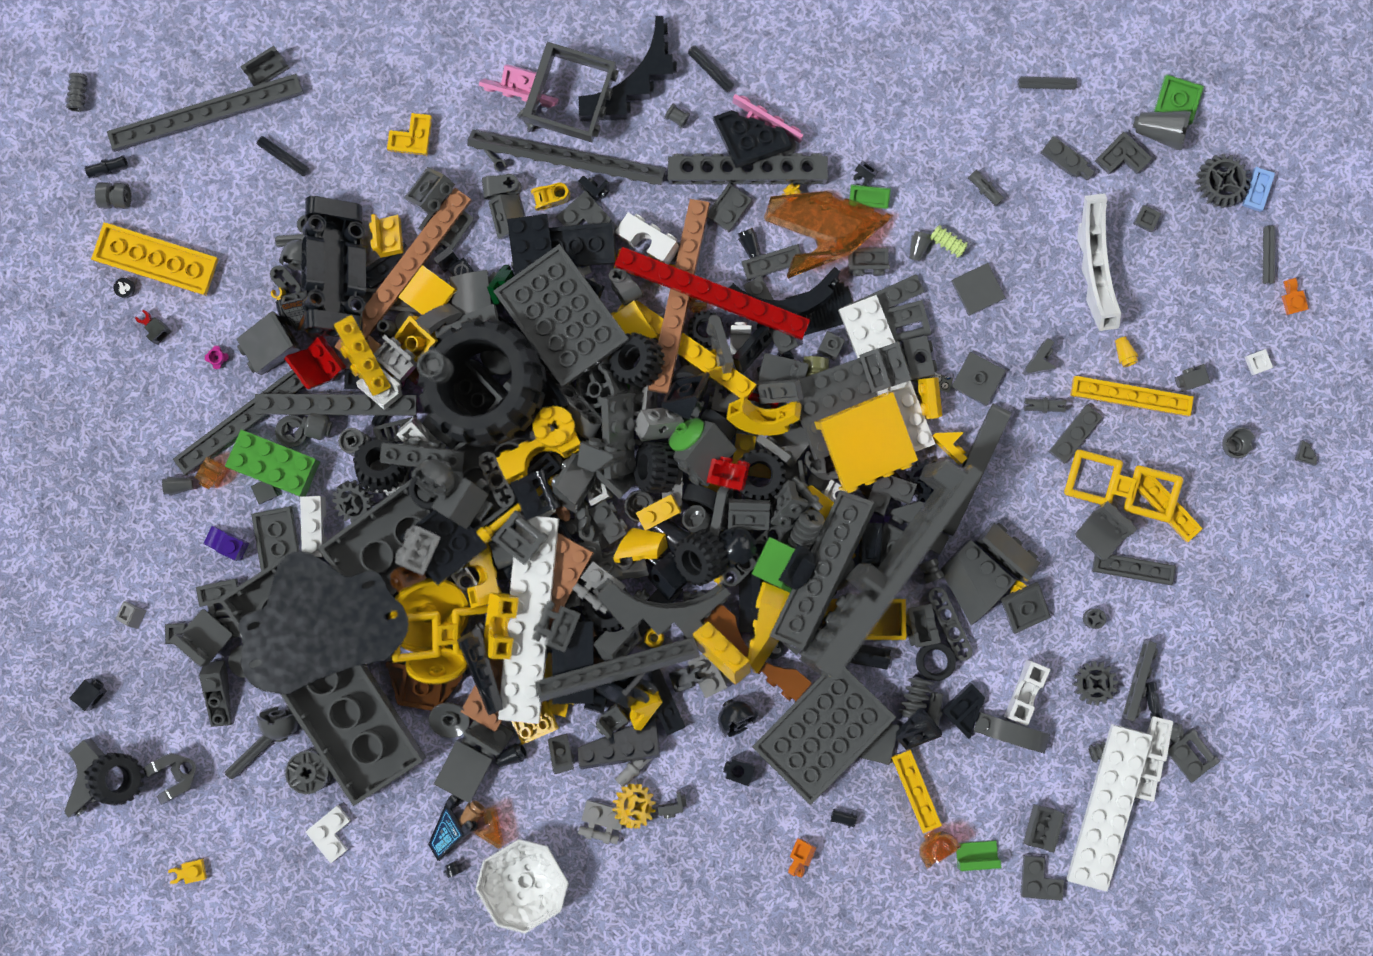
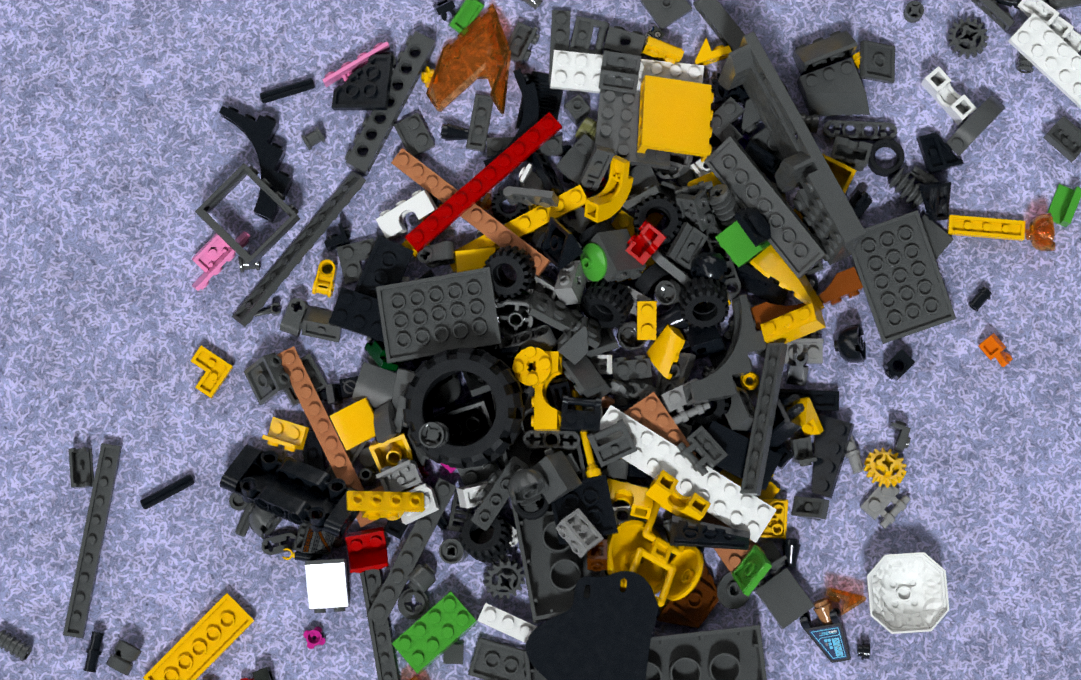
camera: 65 degrees left, 5 degrees down
(468, 728) = (751, 570): none -> bright green tile

